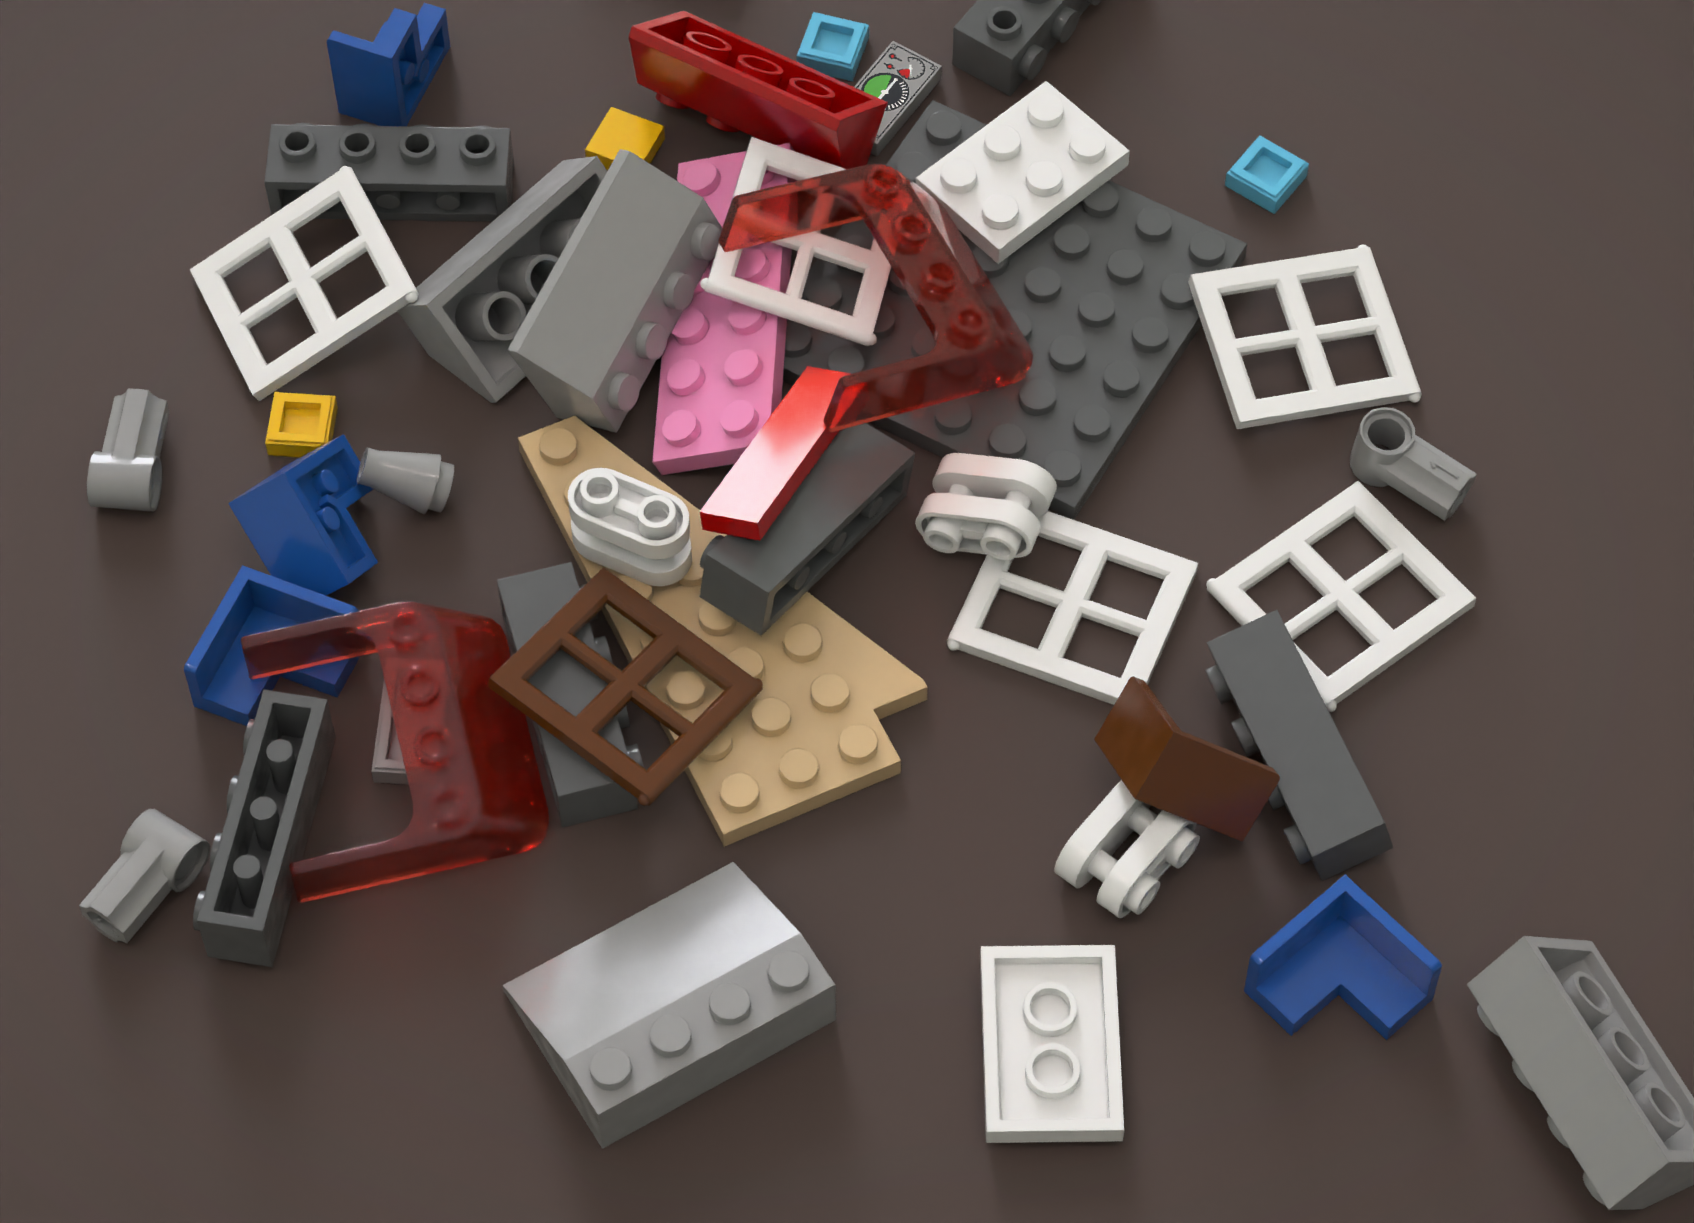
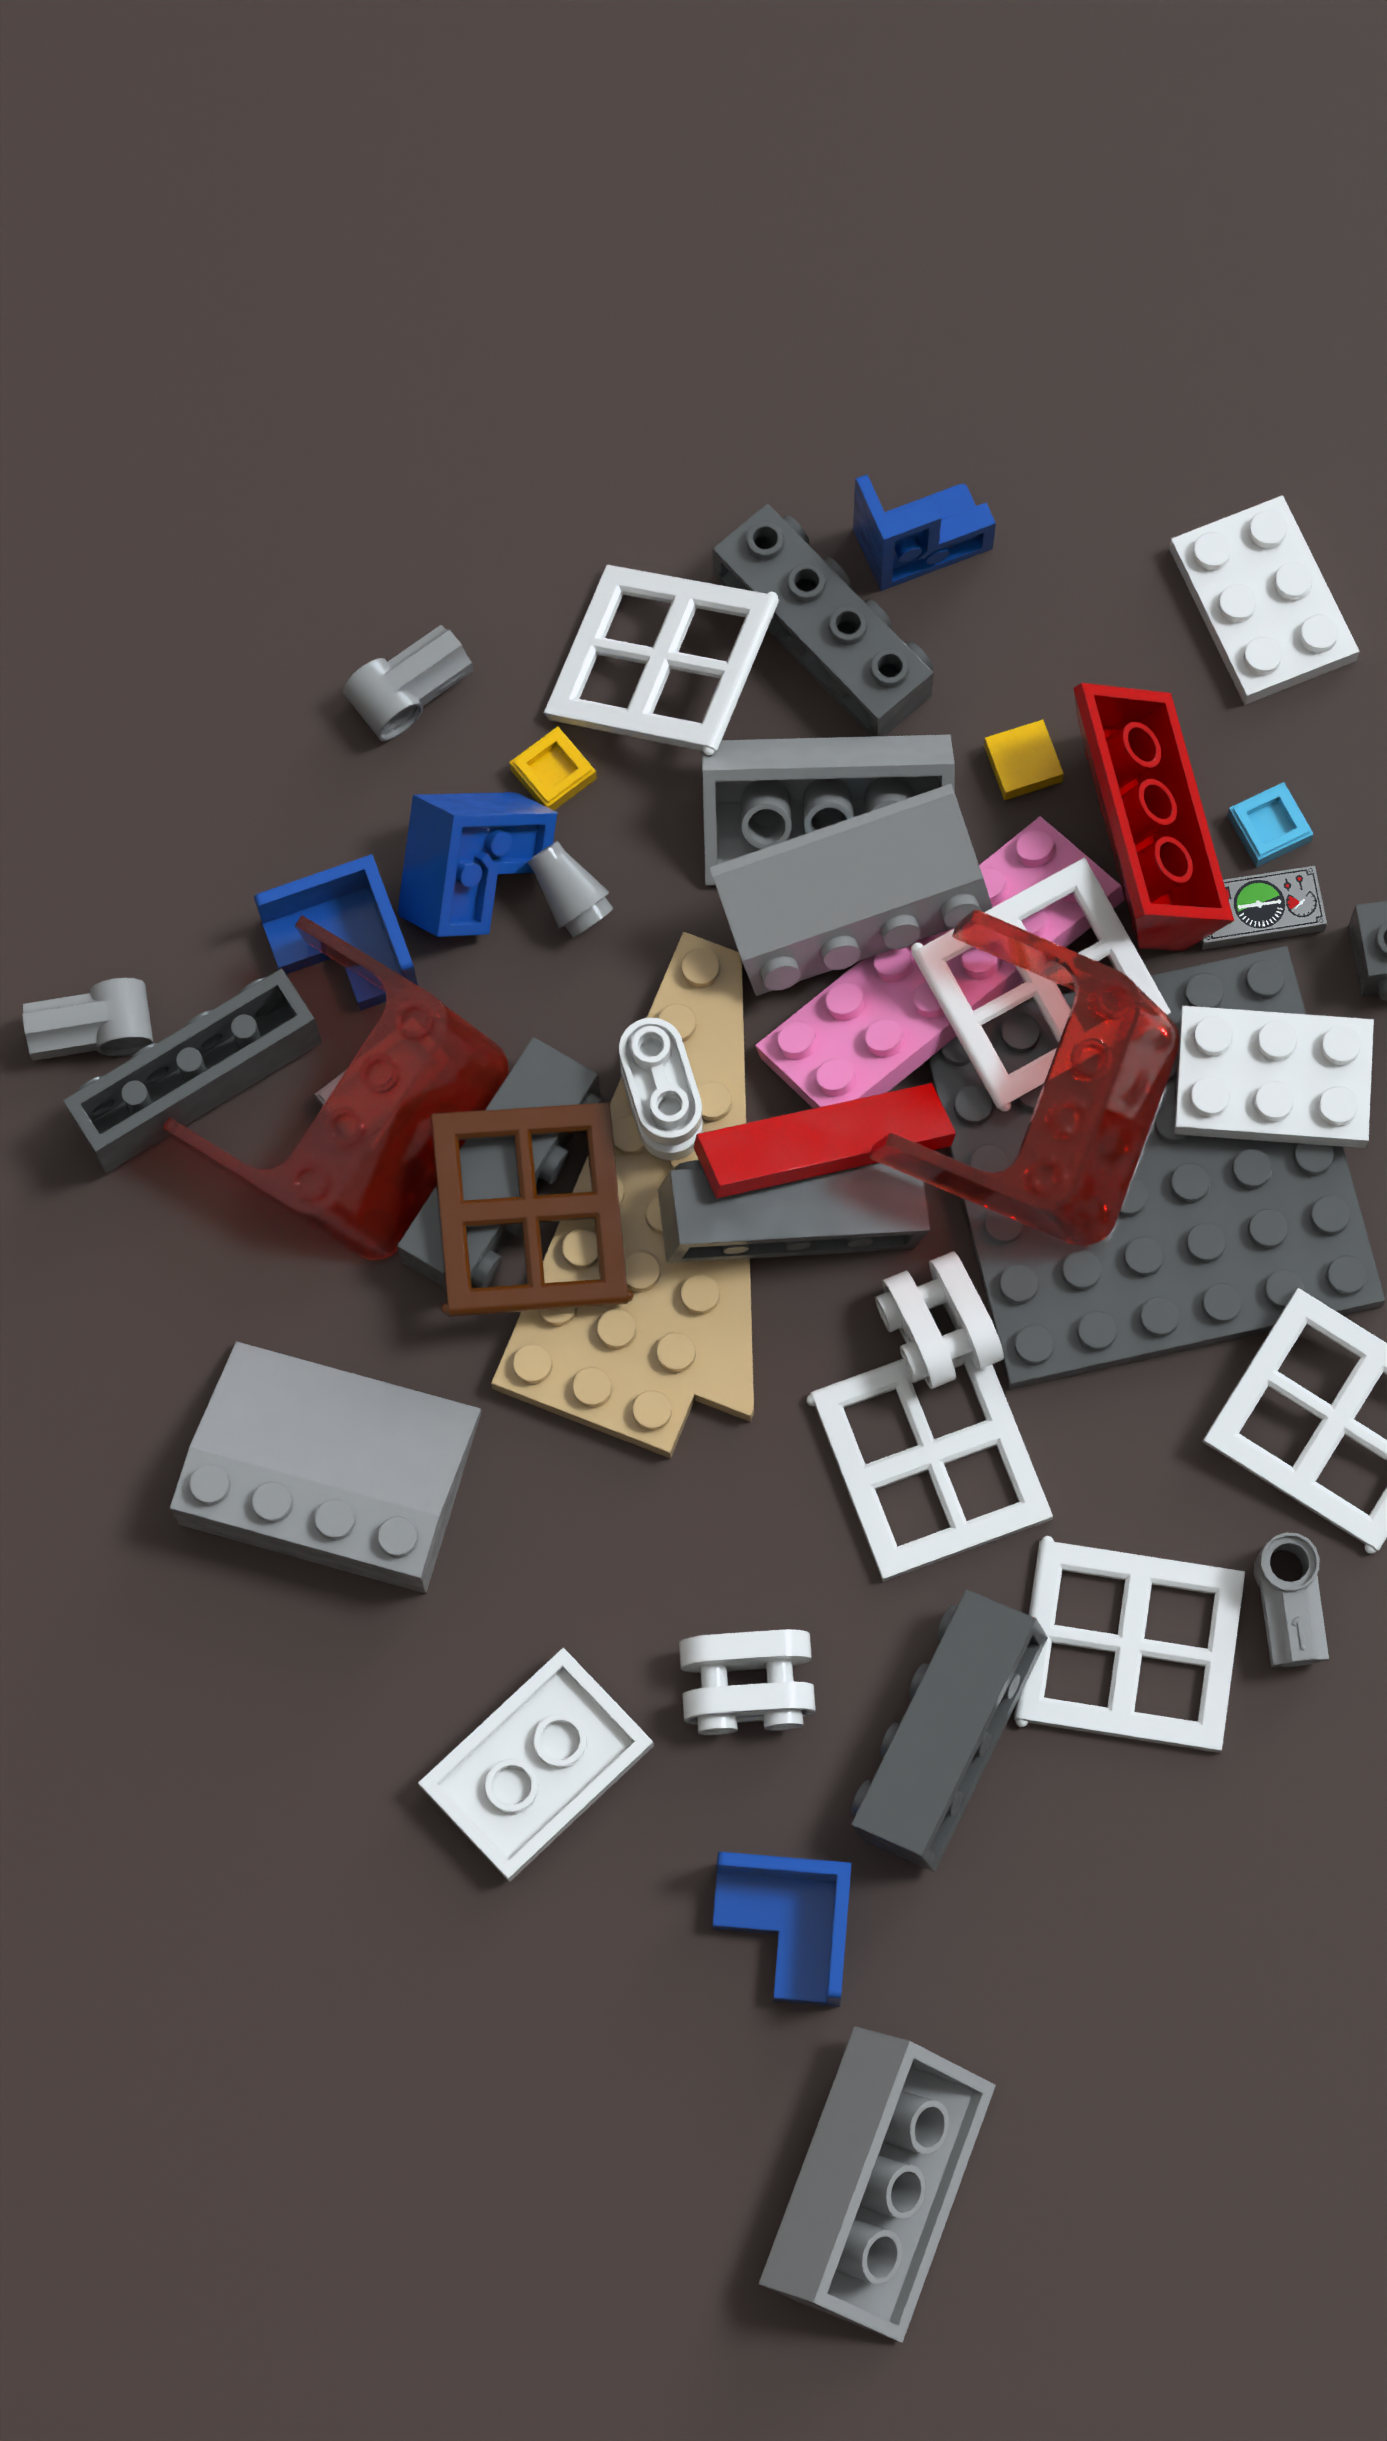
camera: 50 degrees right, 15 degrees up
(1179, 769) = (811, 1666): reddish brown panel -> none

